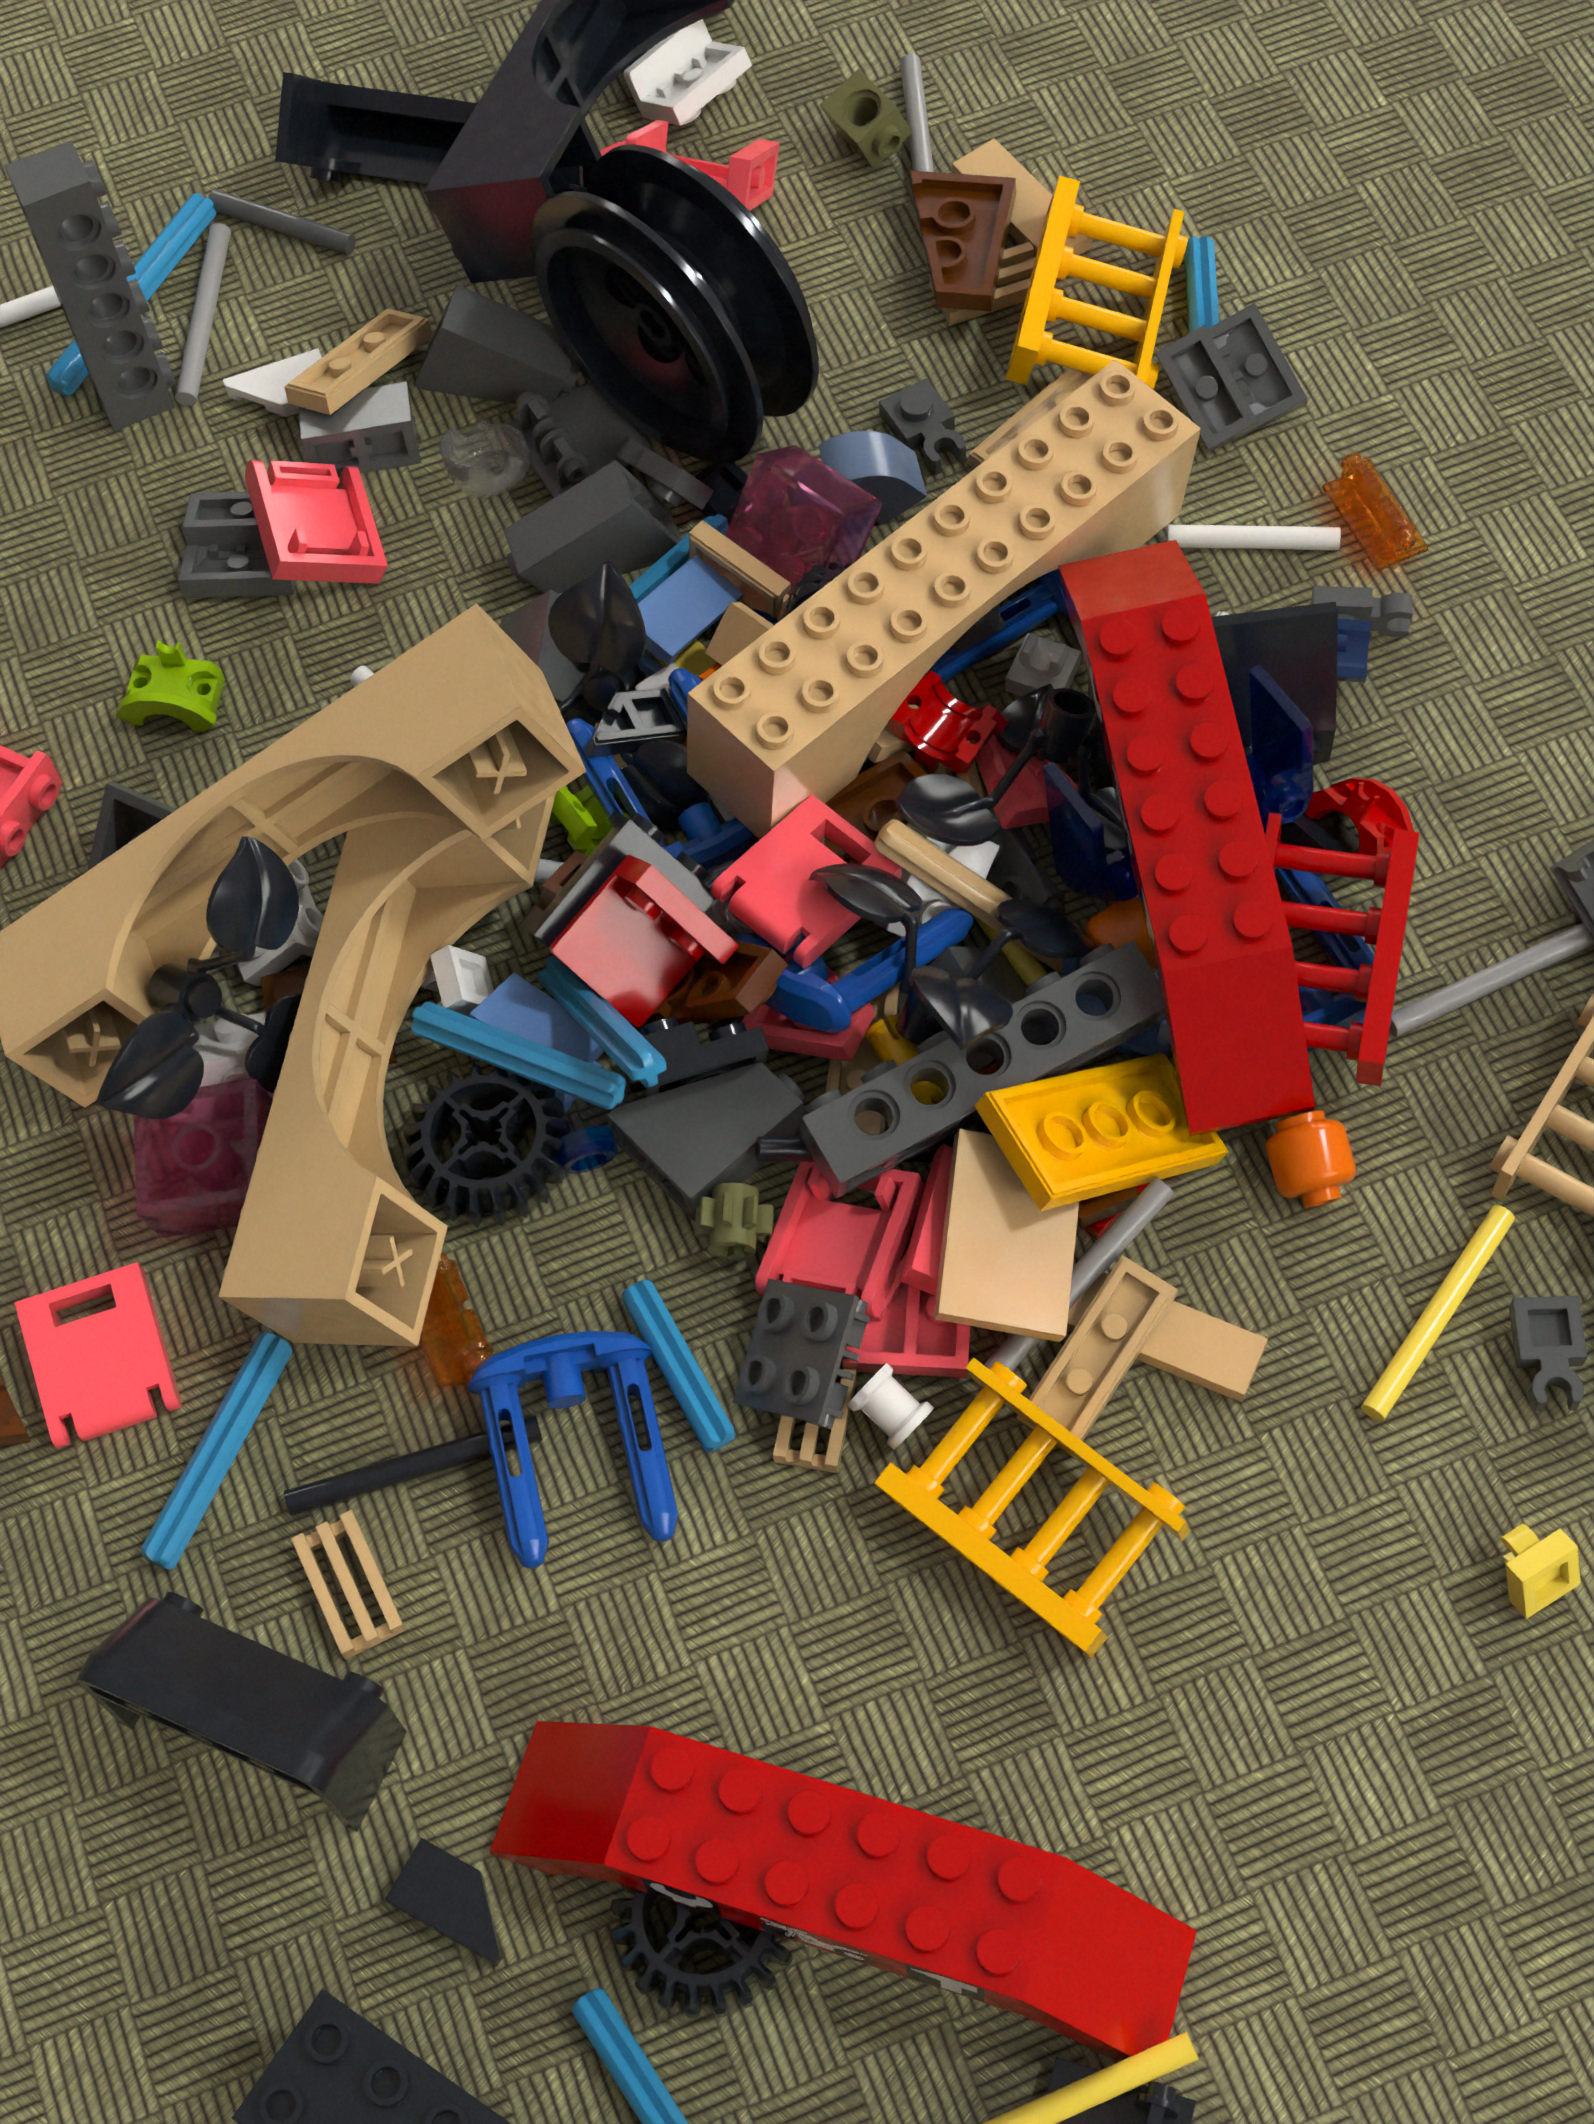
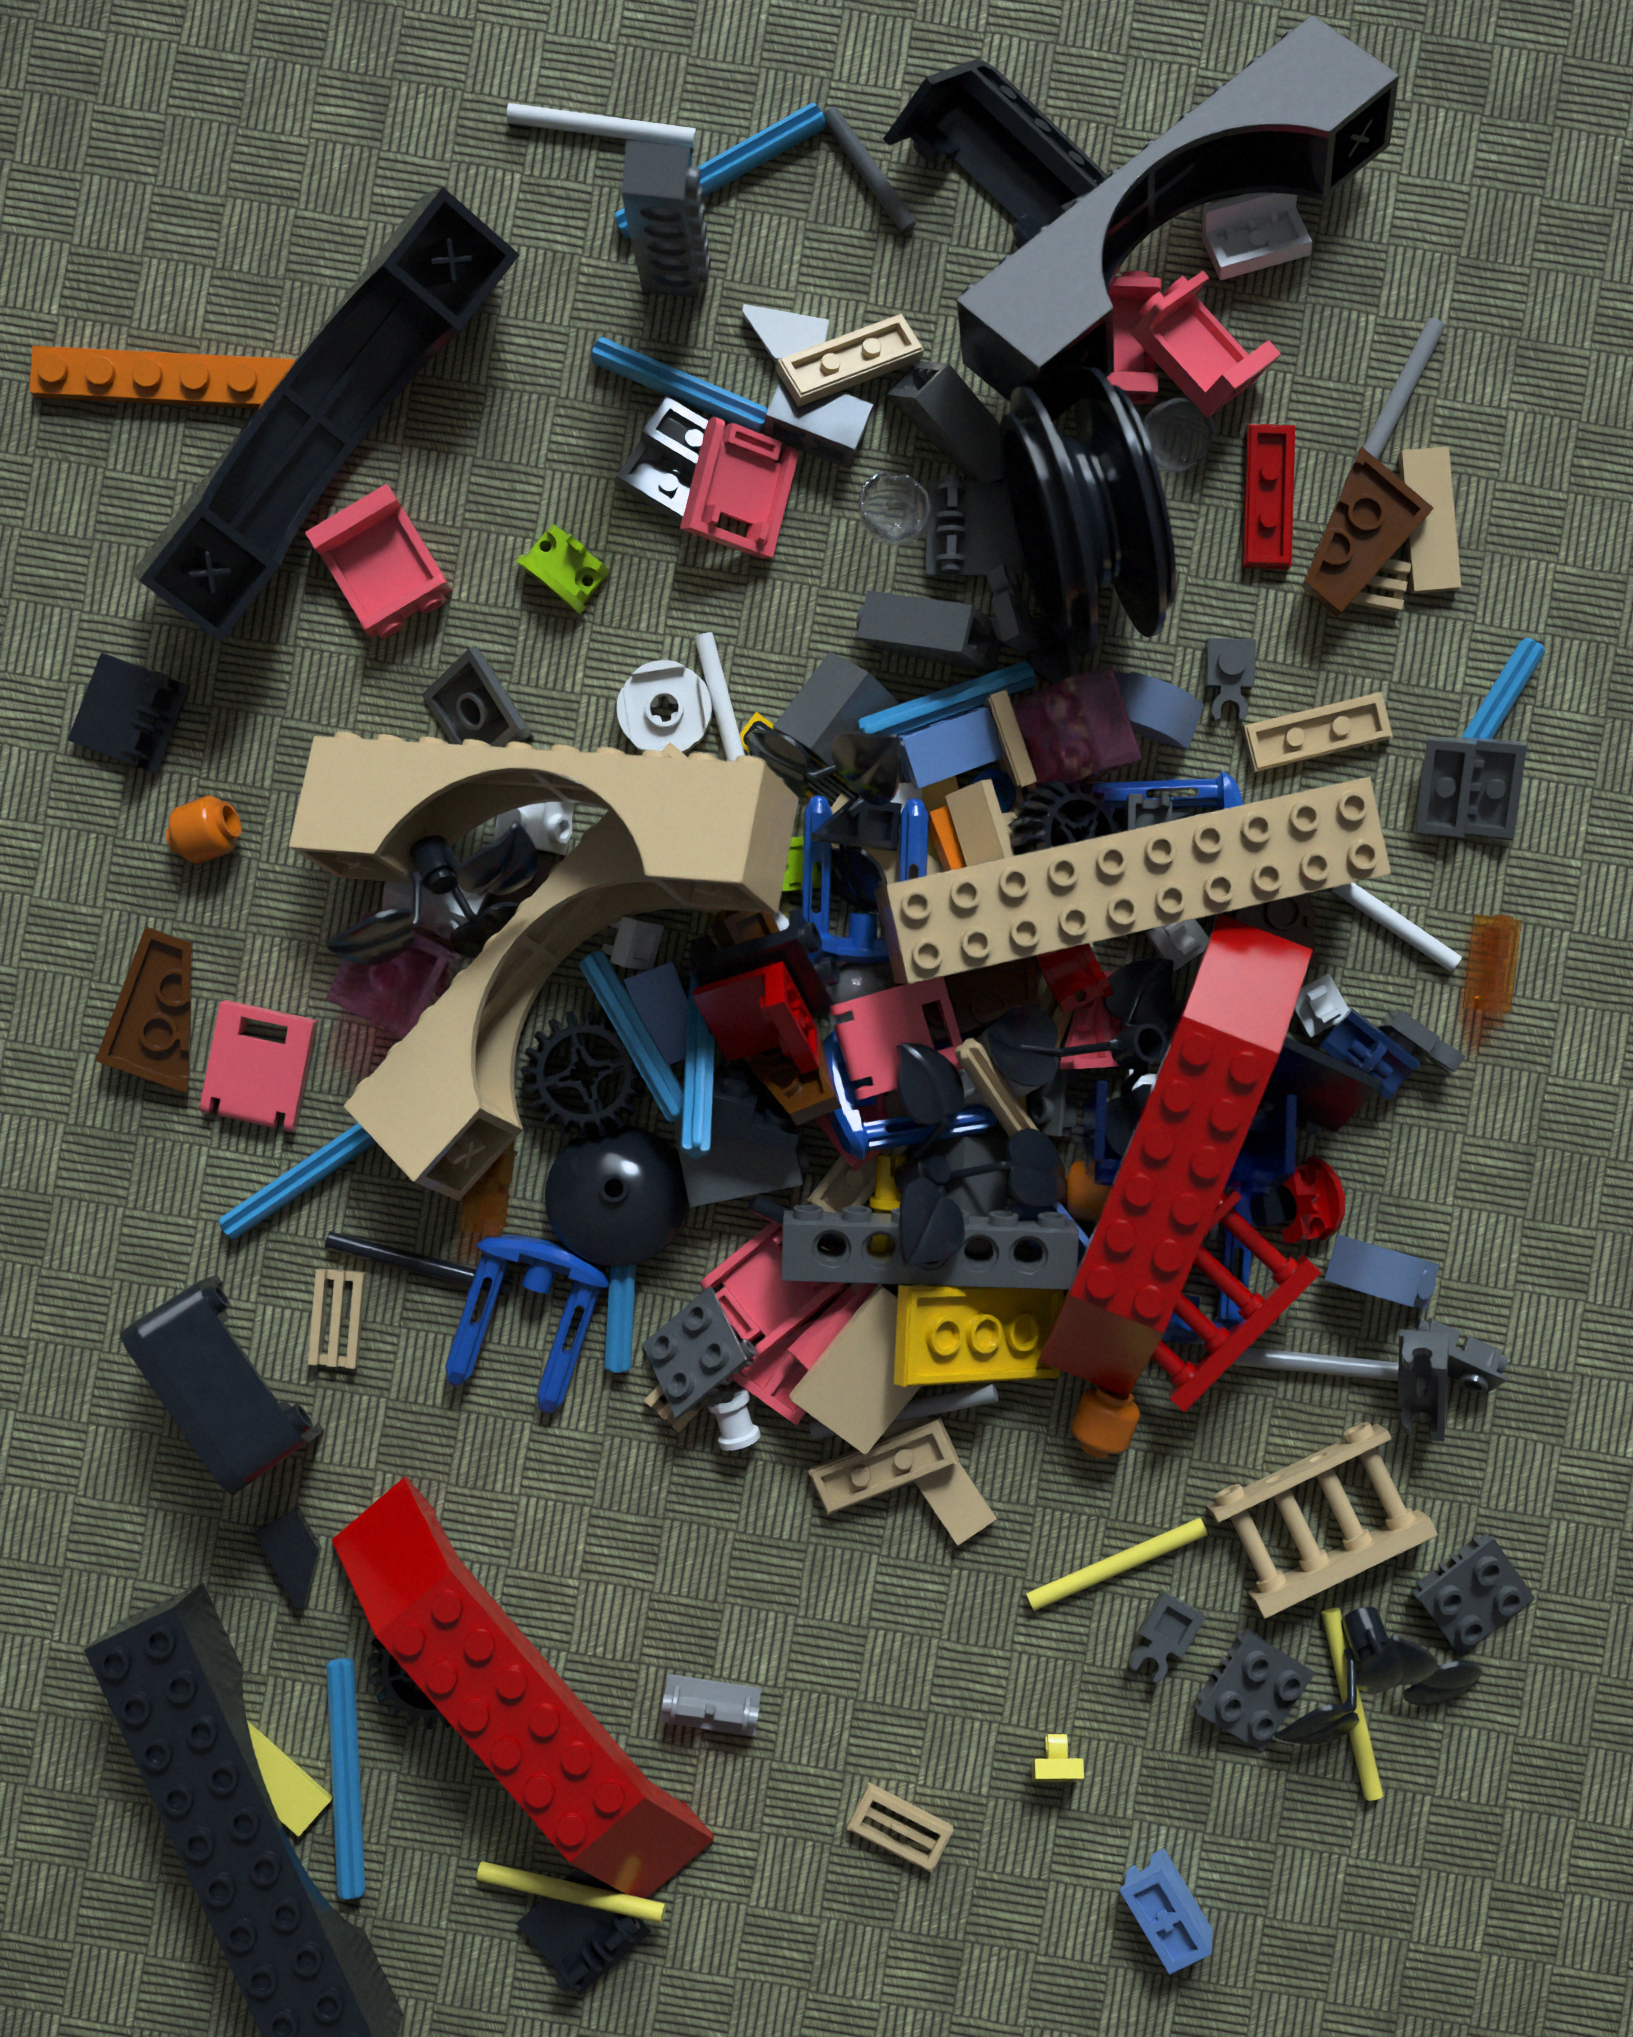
camera: 20 degrees right, 25 degrees up
(179, 481) = (678, 384): none -> dark azure axle
(203, 315) = (763, 224): light grey bar -> none
(586, 1150) = (646, 1118): clear blue tile -> none
(606, 1273) = (624, 1227): none -> black dish
(733, 1220) = (711, 1232): olive gear -> none
(853, 268) = (1268, 496): none -> red tile
(855, 105) = (1359, 351): olive brick -> none
(1025, 1569) = (747, 1575): yellow fence -> none
(1057, 261) = (1378, 639): yellow fence -> none
(1083, 1763) = (710, 1705): none -> light grey hinge
(1353, 1777) = (876, 1794): none -> tan tile
(1487, 832) = (1382, 1272): none -> sand blue brick

